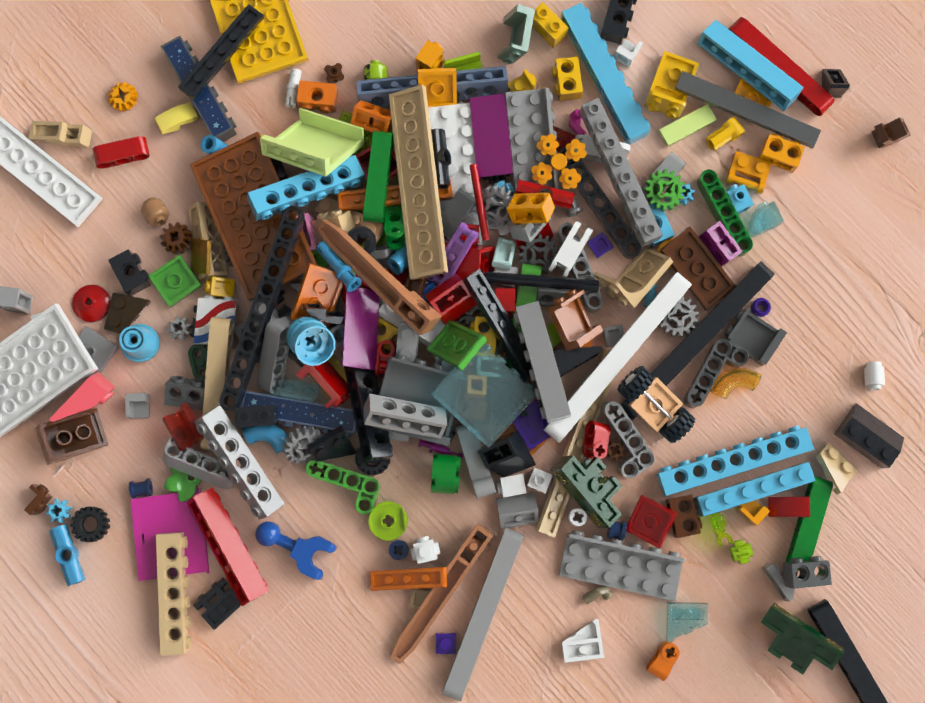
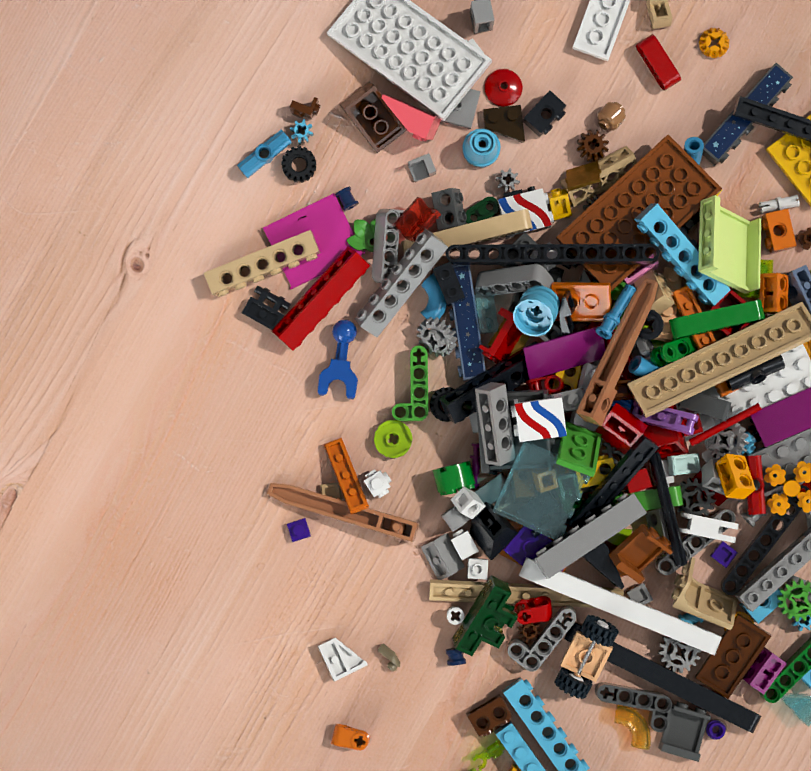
camera: 70 degrees right, 5 degrees up
(172, 119) = (710, 101): light yellow slope -> none
(175, 281) = (551, 159): bright green plate -> none
(331, 446) = (445, 363): black wing -> none
(398, 549) = (369, 457): dark blue wheel -> none
(414, 372) = (539, 419): none -> panel
(473, 468) = (468, 502): none -> white brick
(482, 614) = (337, 555): light grey beam -> none
(621, 565) = (423, 671): light grey bracket -> none
(651, 521) = (474, 686): red tile -> none
(684, 618) = (395, 745): clear light blue wing -> none

